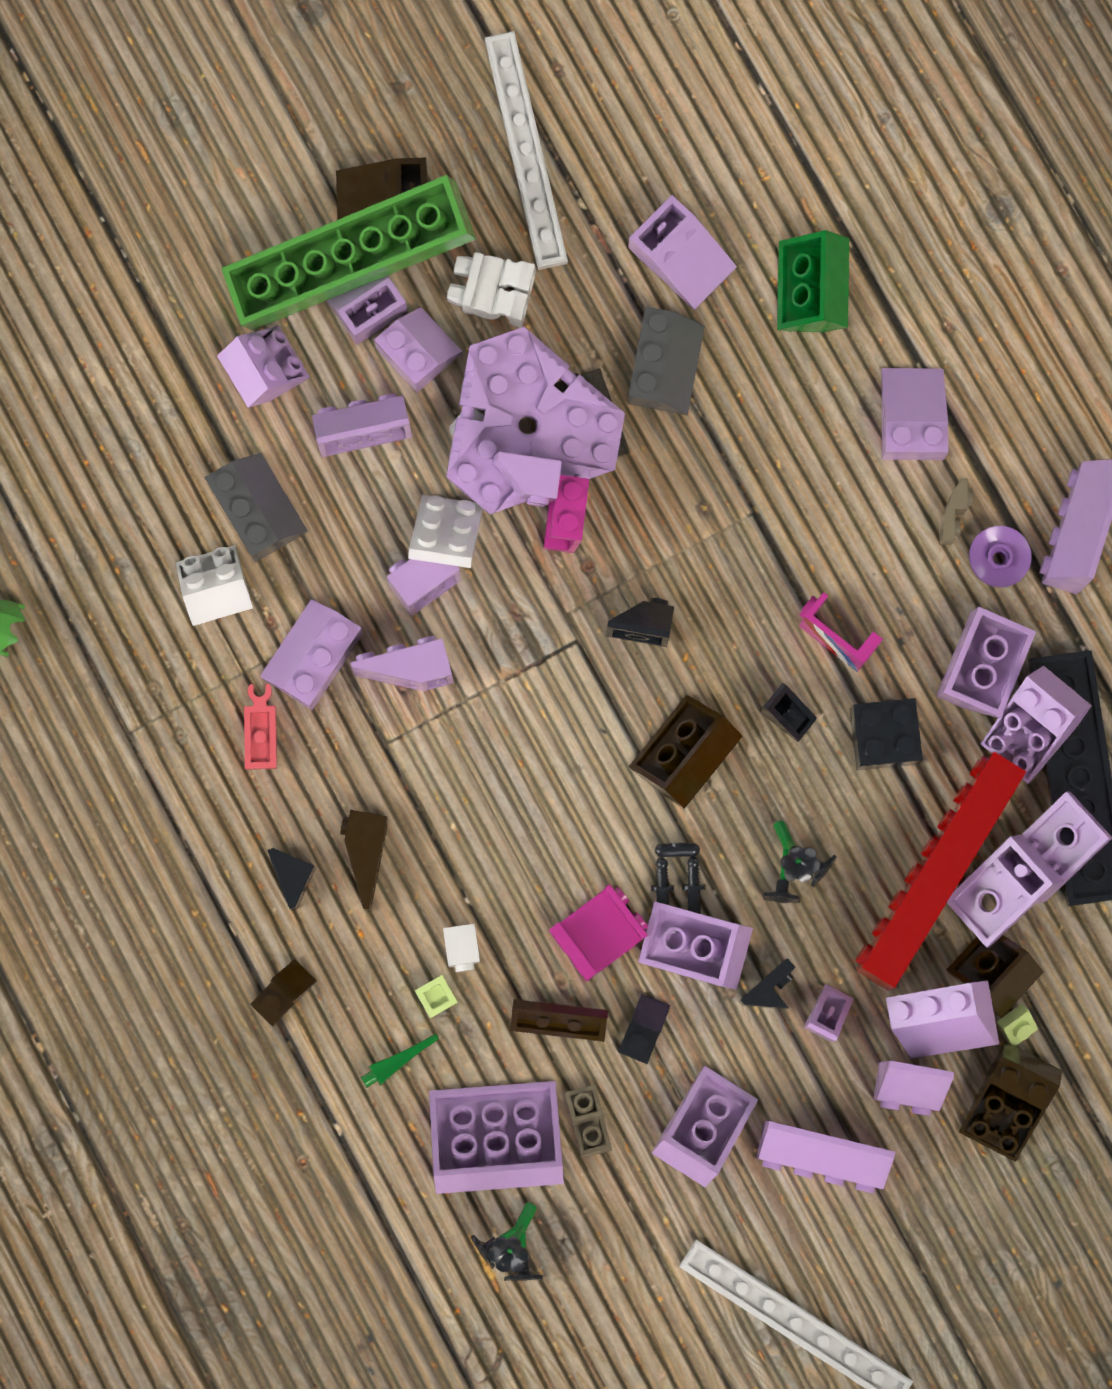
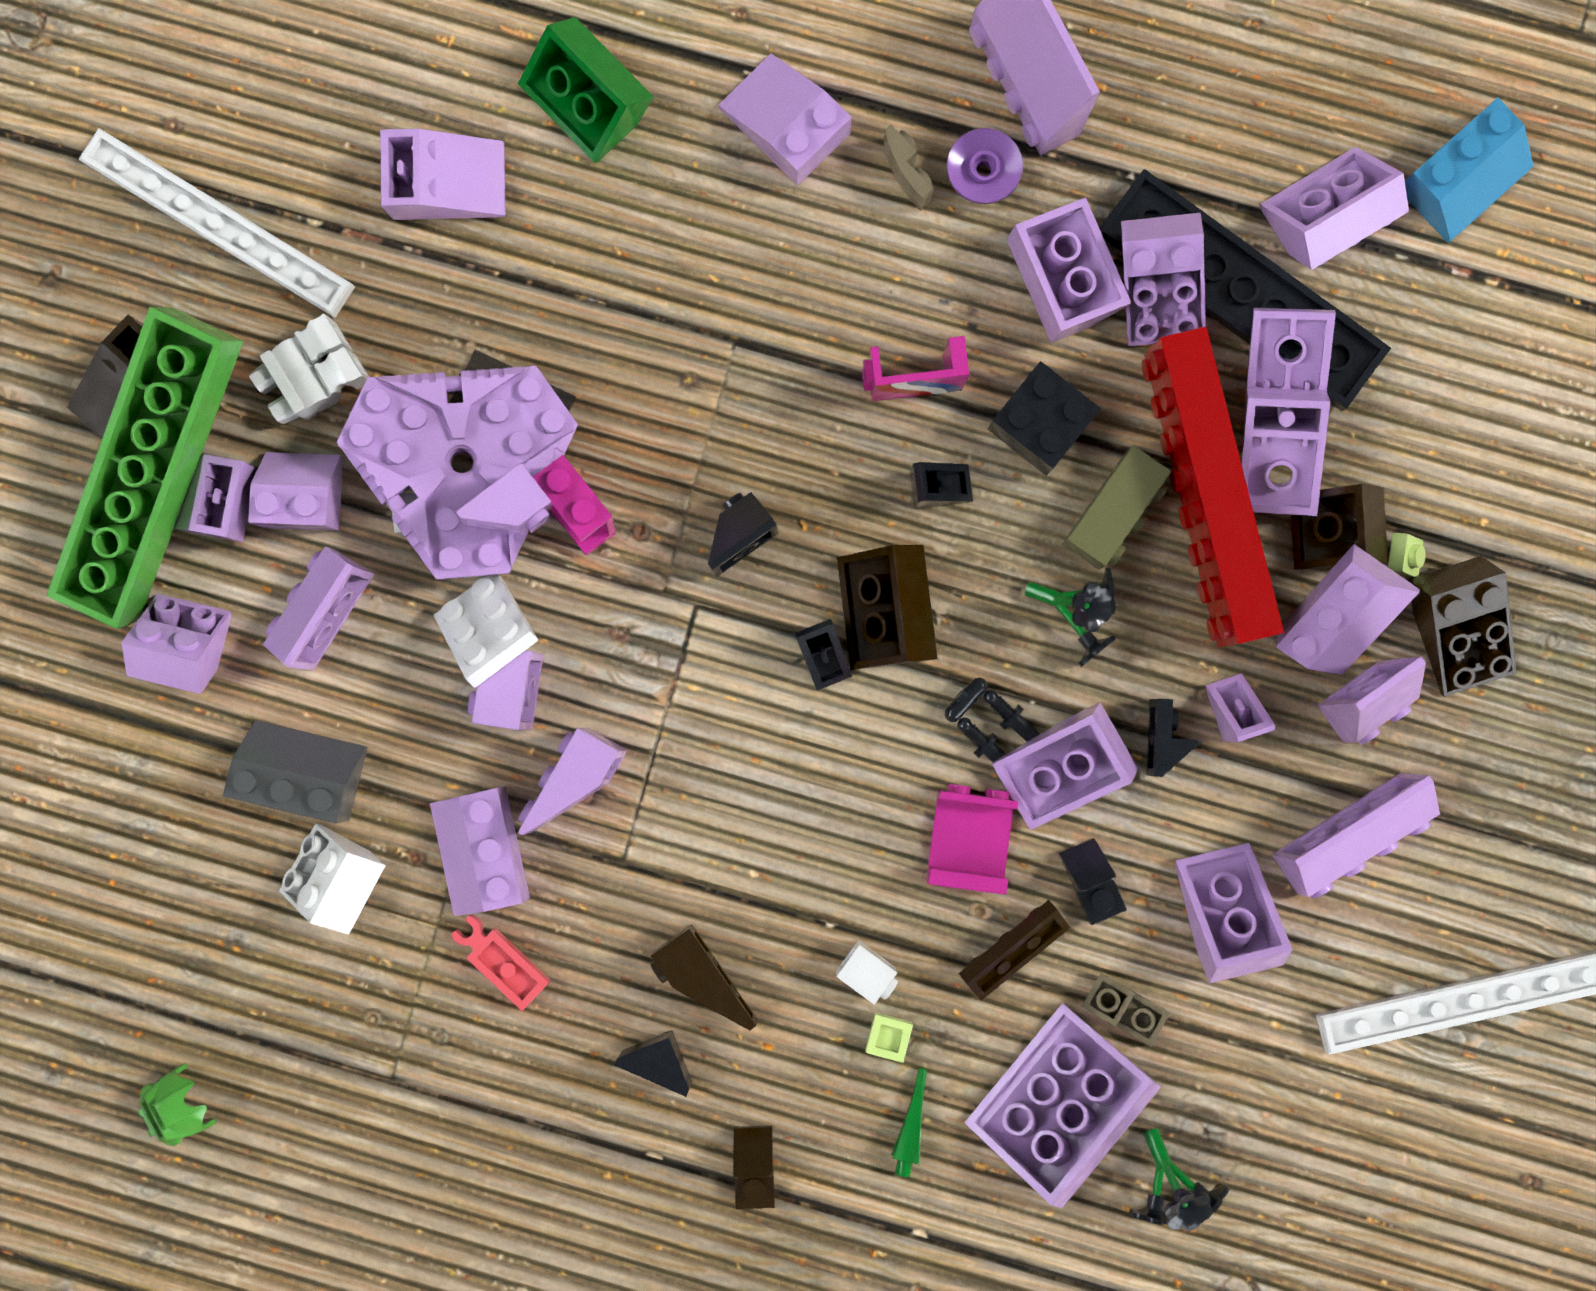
camera: 35 degrees left, 5 degrees up
(621, 740) = (823, 654): none -> black slope
(666, 361) = (526, 285): dark grey slope -> none
(876, 829) = (1118, 508): none -> olive brick

